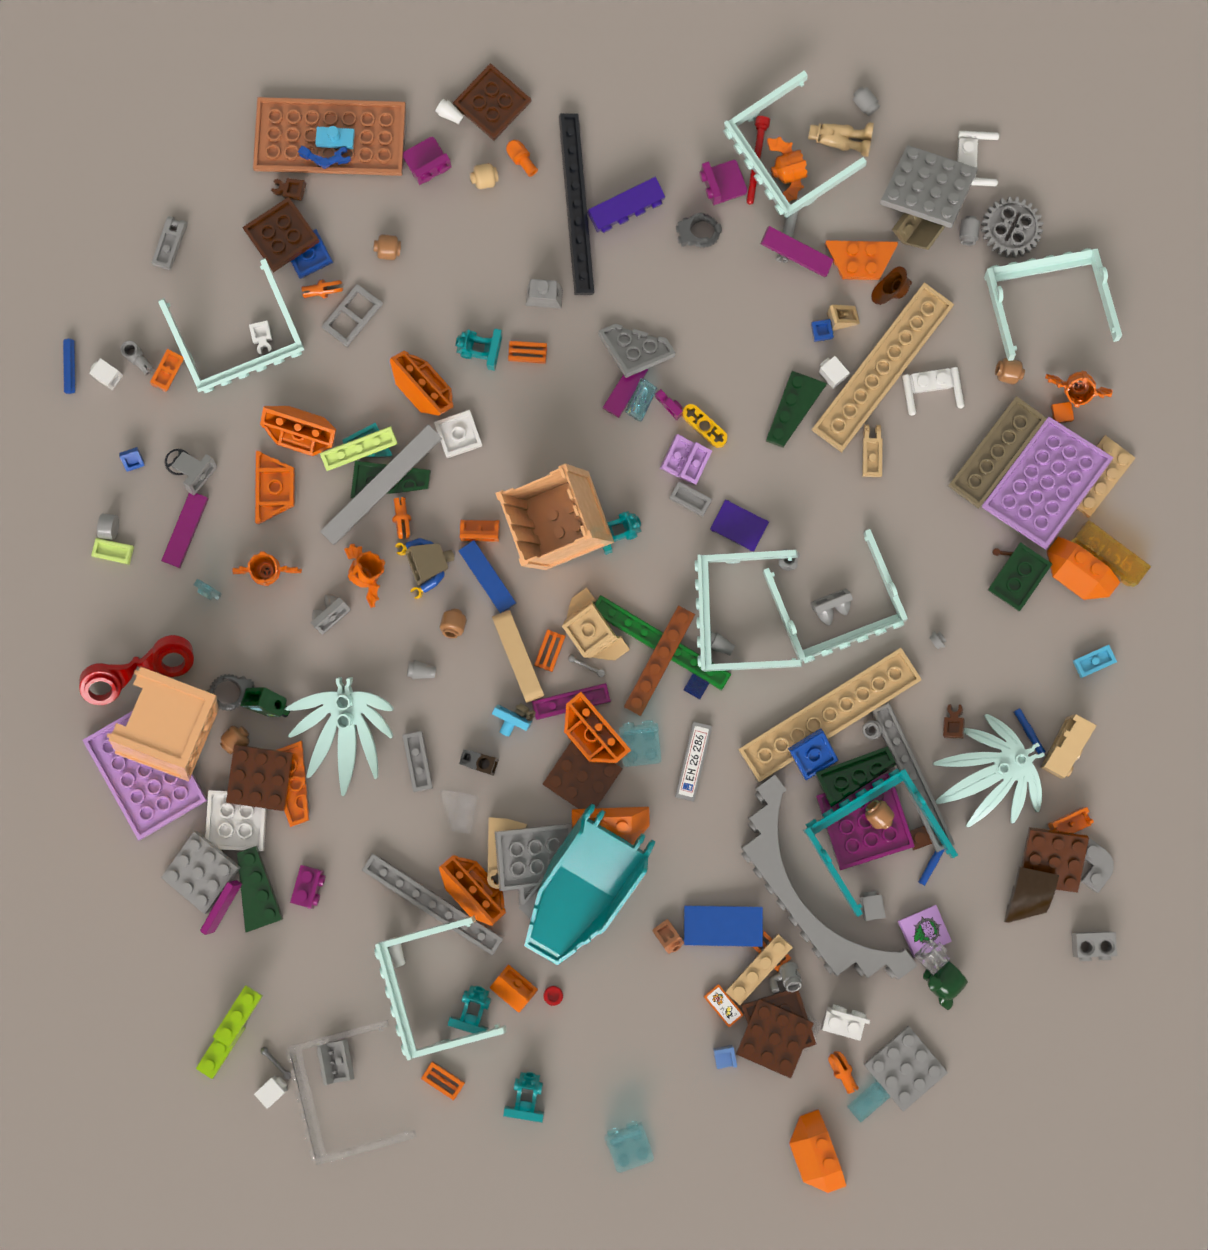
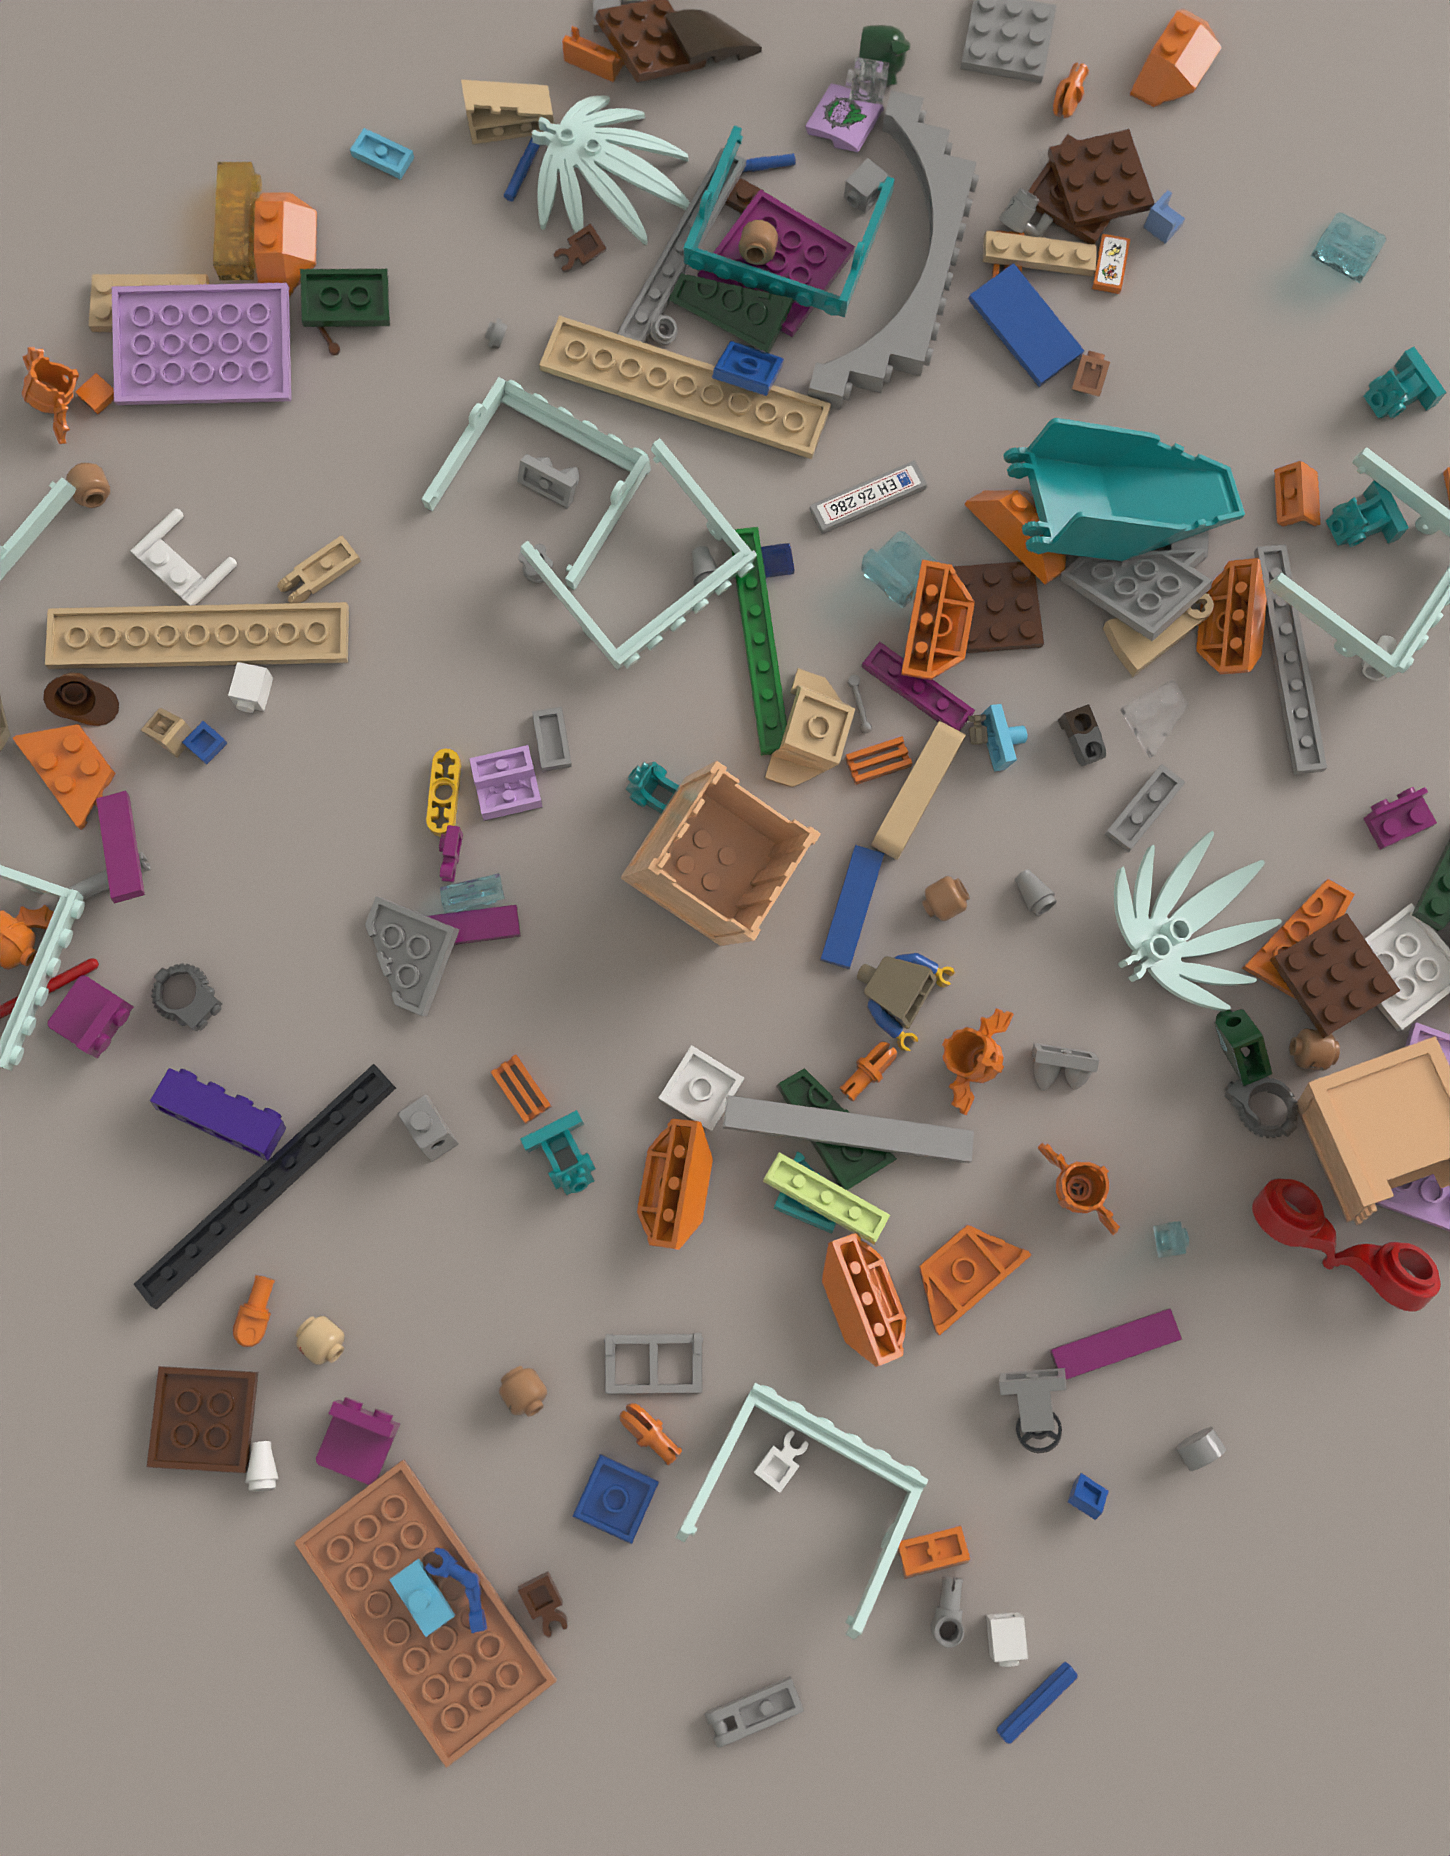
camera: 135 degrees left, 5 degrees down
(112, 551) = (1224, 1417): yellowish green tile -> none
(281, 234) = (619, 1558): reddish brown plate -> none
(479, 530) = (802, 961): orange hinge -> none
(553, 995) = (1265, 449): red tile -> none
(659, 660) = (782, 620): dark orange plate -> none
(739, 525) = (538, 658): dark purple piece -> none
(795, 403) = (328, 706): dark green wing -> none
(843, 1023) = (1014, 125): white bracket -> none
(868, 1101) = (1077, 48): clear light blue plate -> none
(997, 452) = (205, 429): dark tan plate -> none

